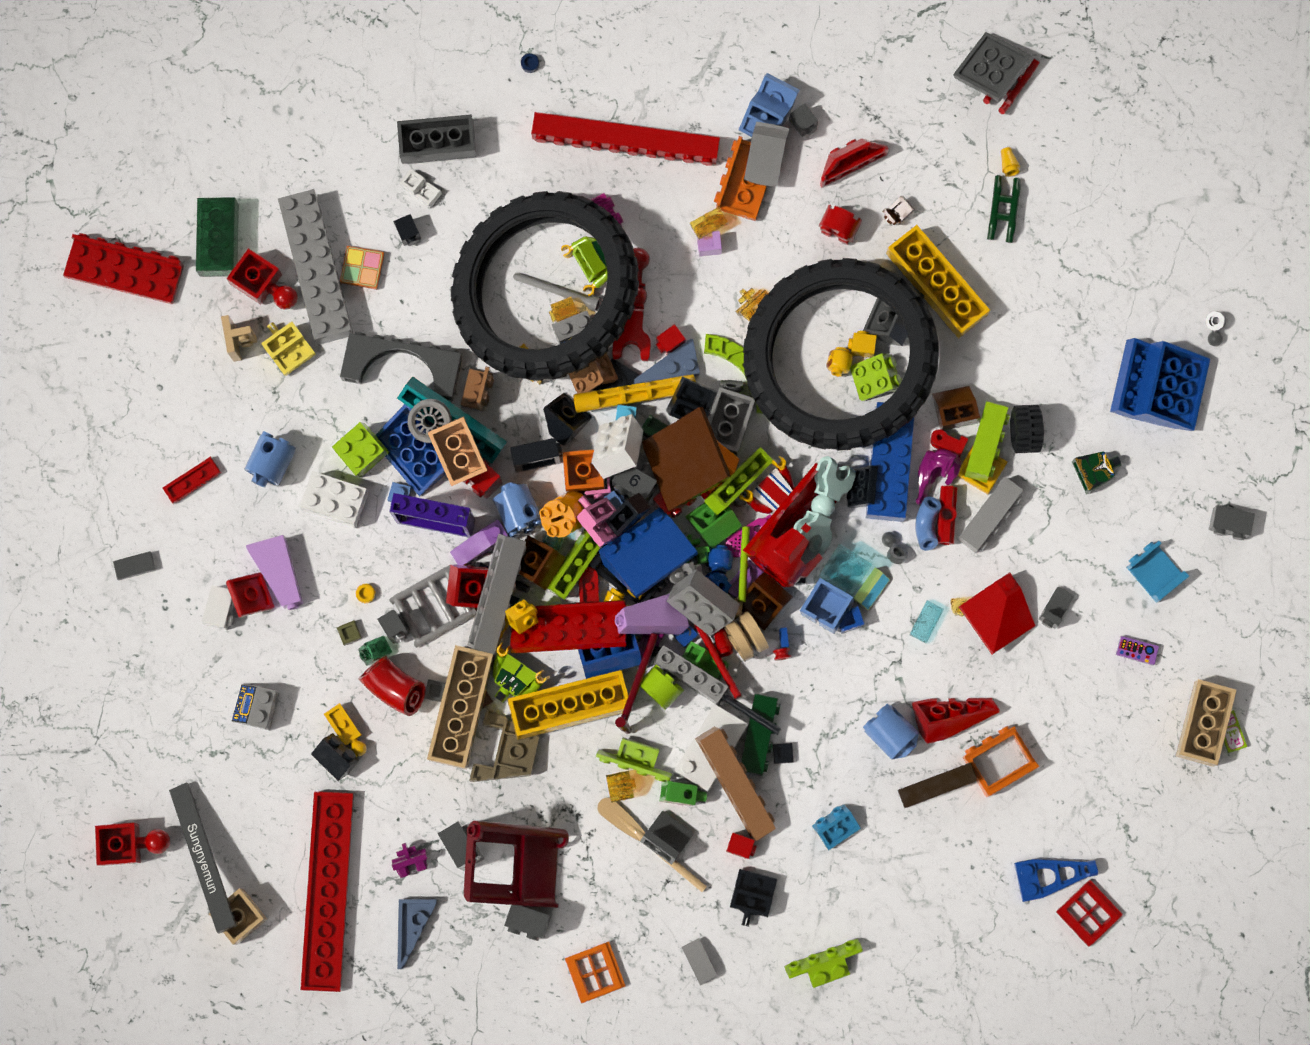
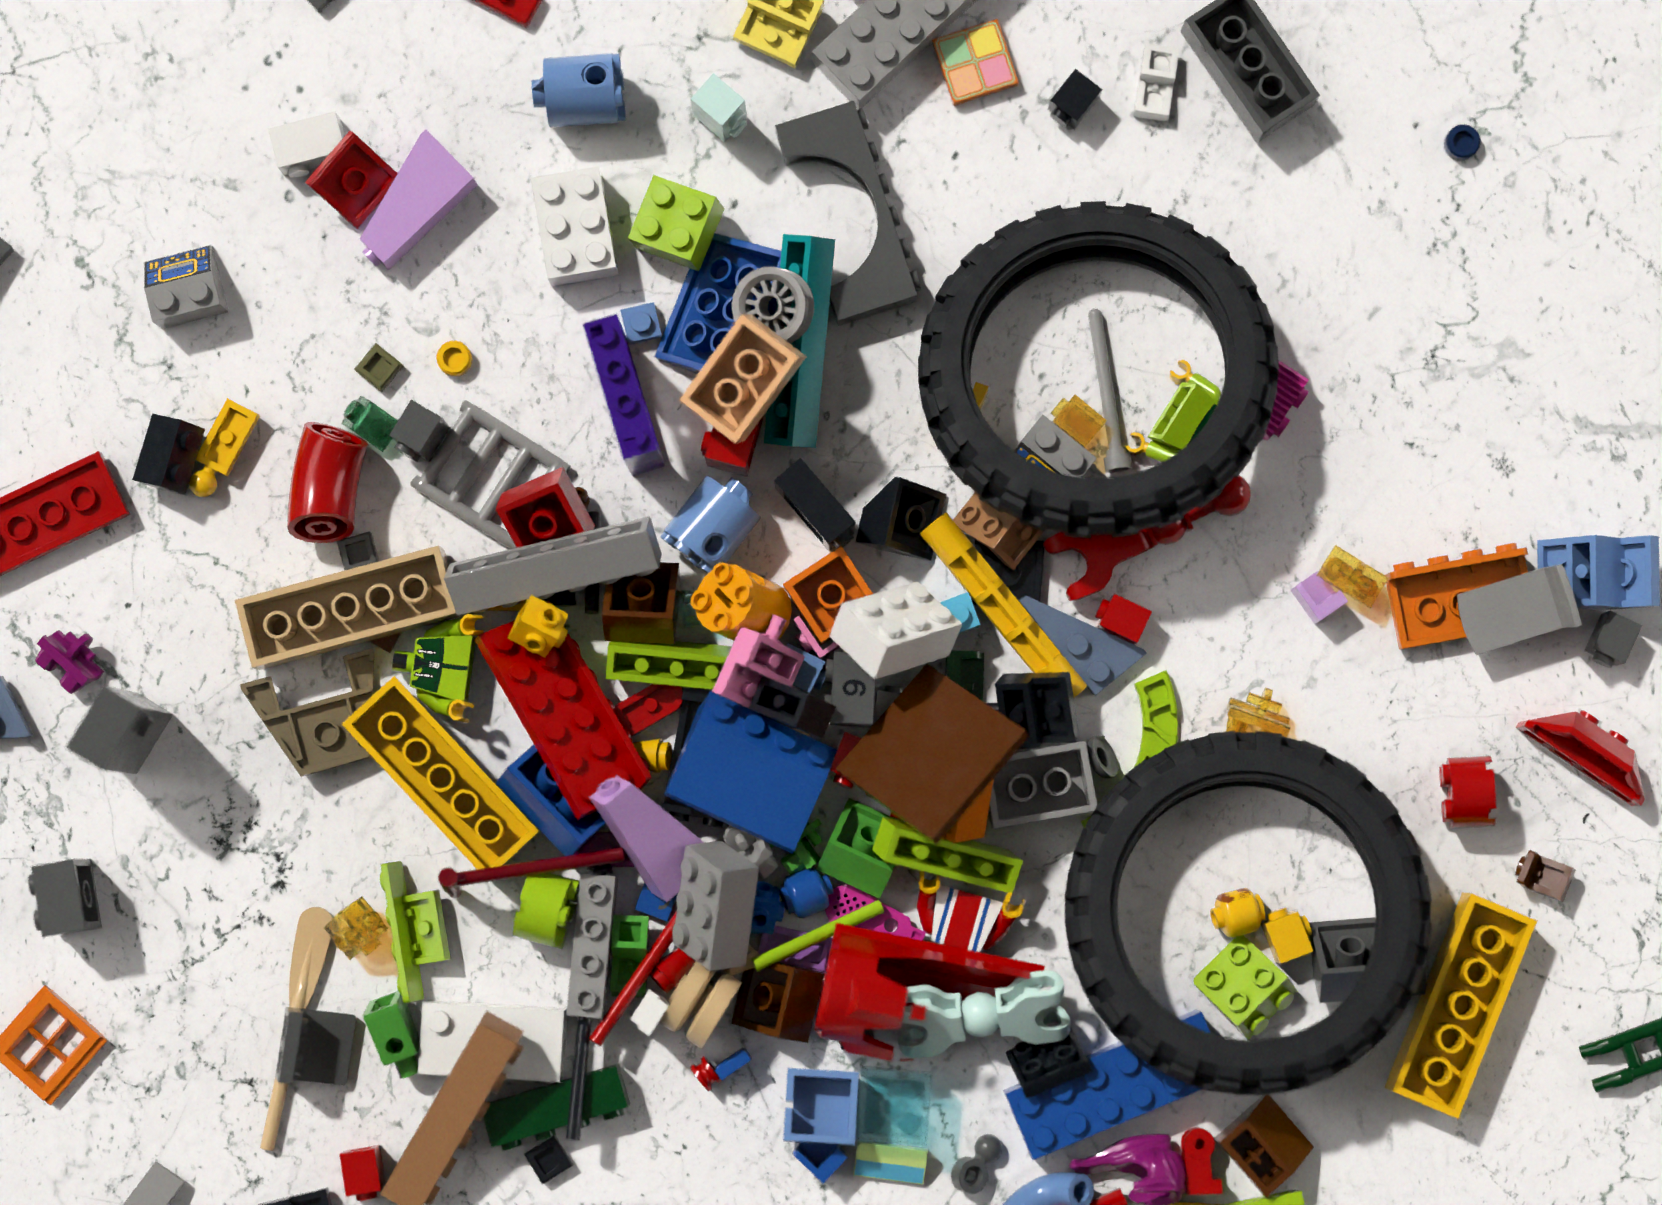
camera: 60 degrees right, 5 degrees up
(317, 398) = (719, 108): none -> light aqua brick
(476, 389) = (875, 353): medium nougat bracket -> none
(478, 544) = (626, 493): medium lavender slope -> none
(532, 867) = (147, 862): dark red piece -> none
(625, 138) = (1420, 365): red brick -> none
(738, 663) = (650, 1011): none -> white slope

